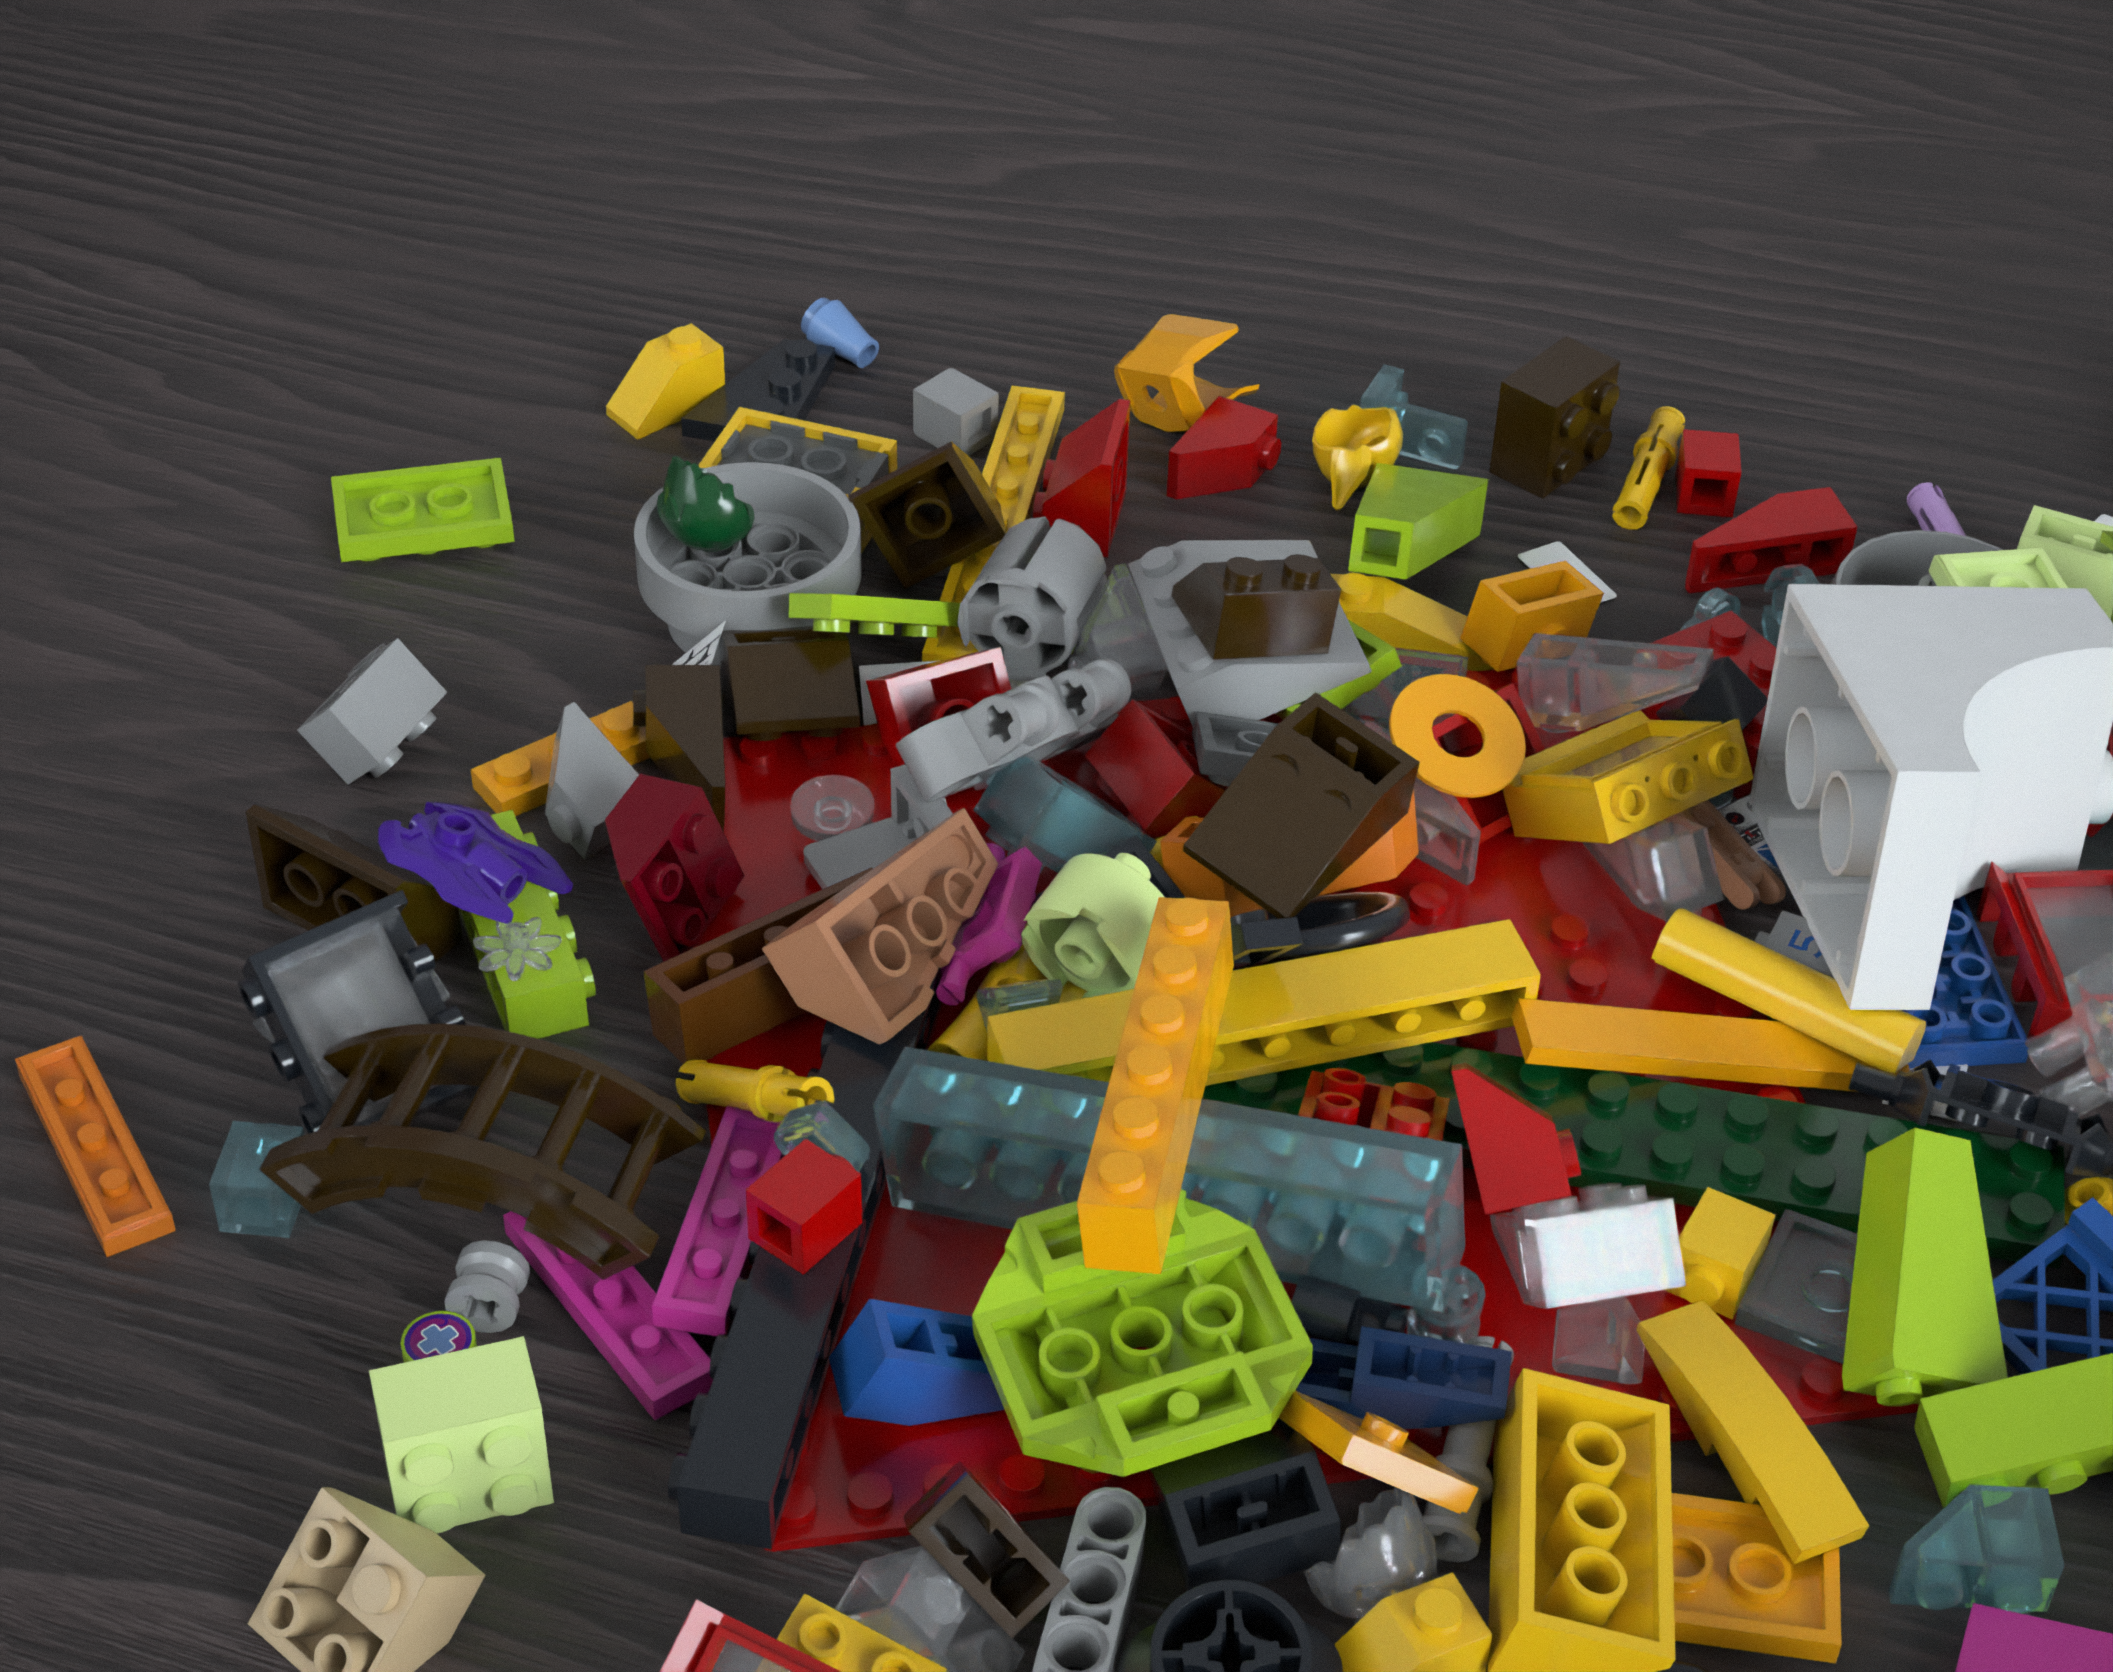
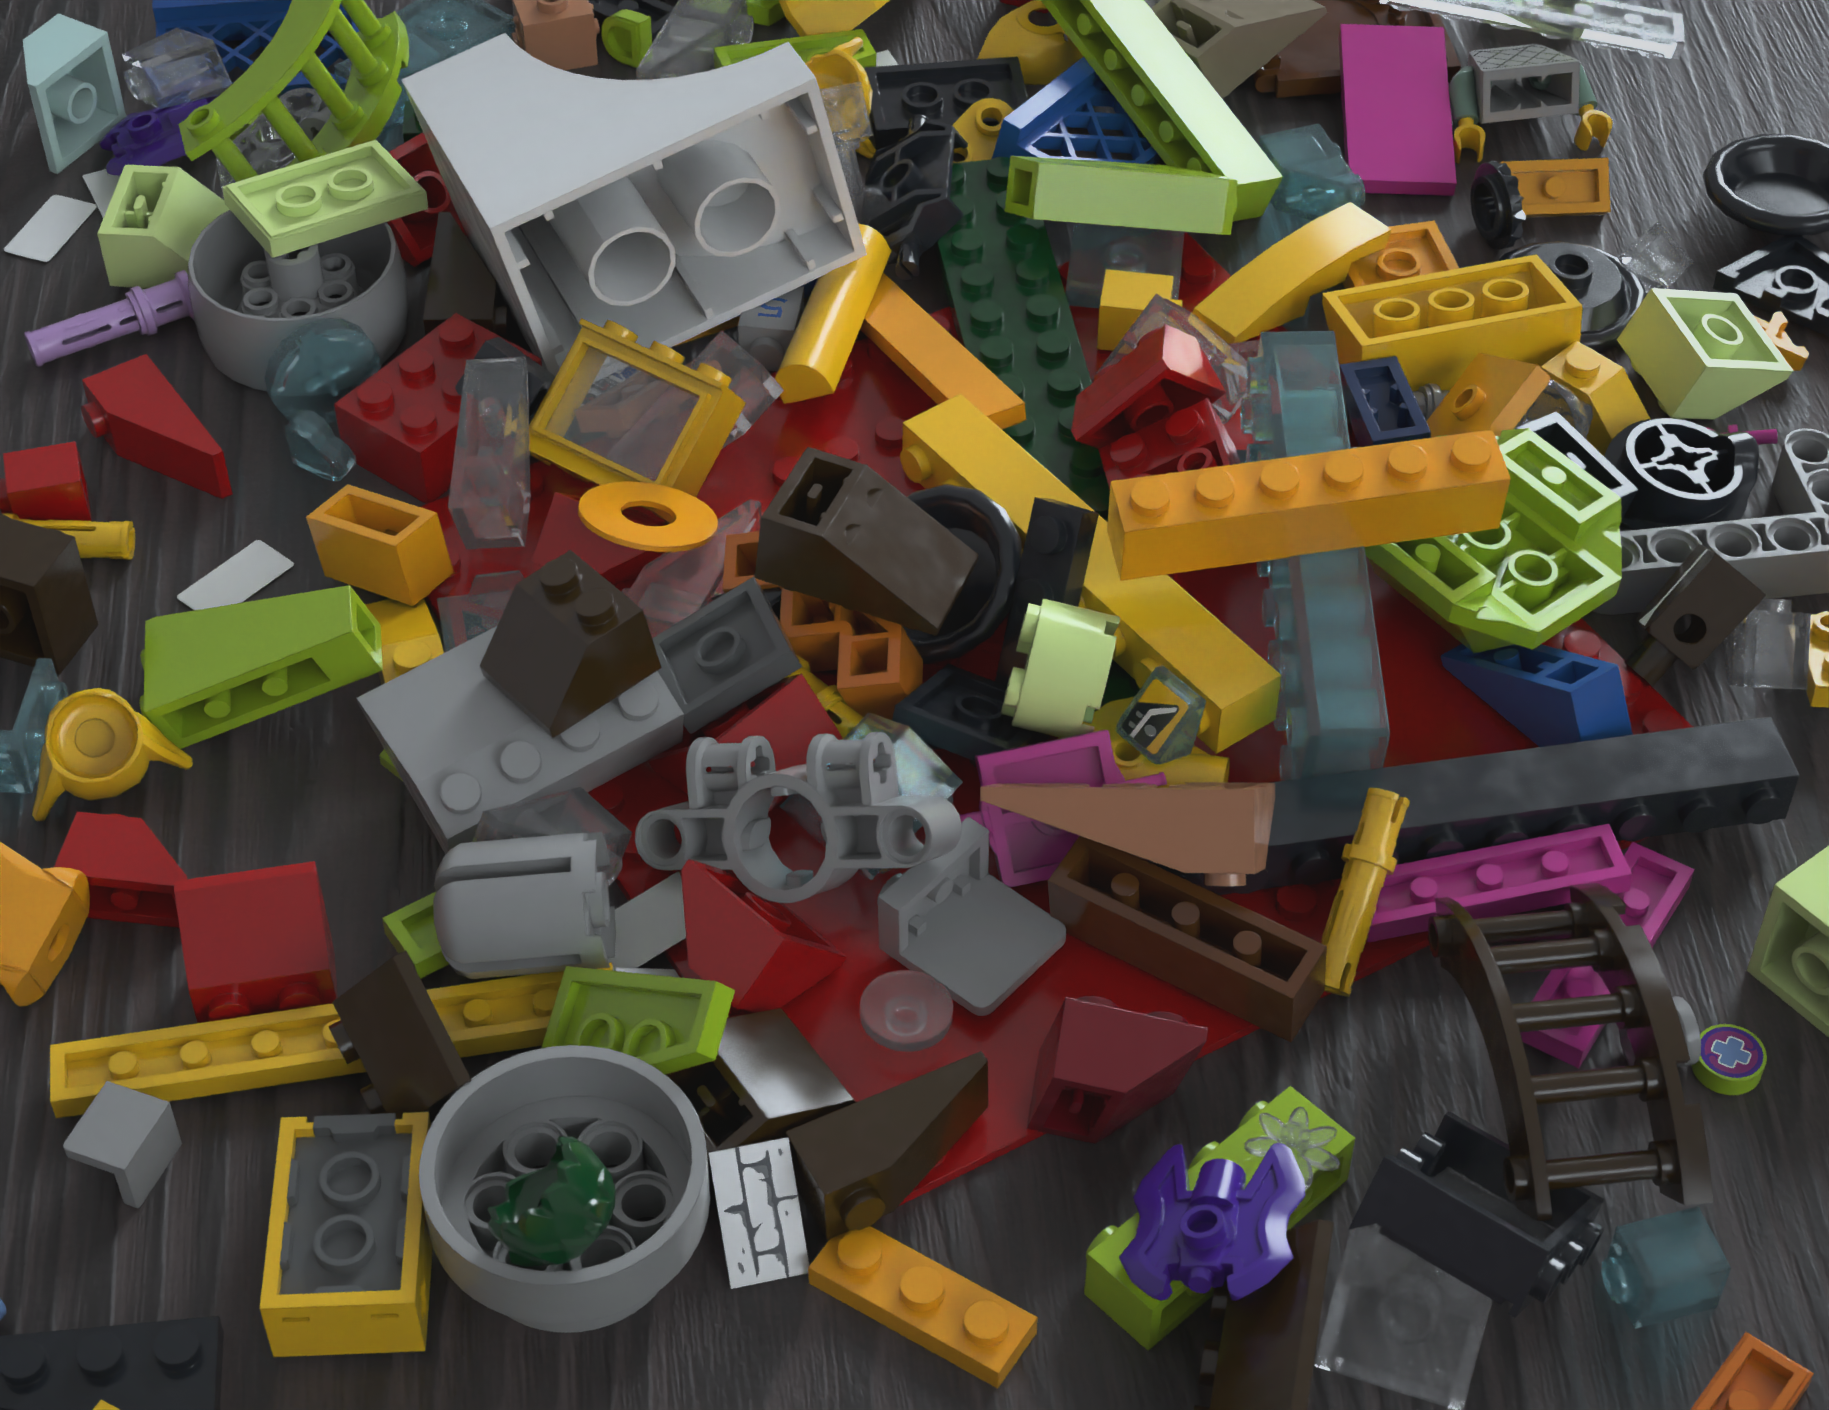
camera: 110 degrees left, 5 degrees up
(584, 782) = (998, 1219): light grey slope -> none
(804, 1205) = (1504, 762): red brick -> none
(823, 1128) = (1428, 783): clear light blue tile -> none

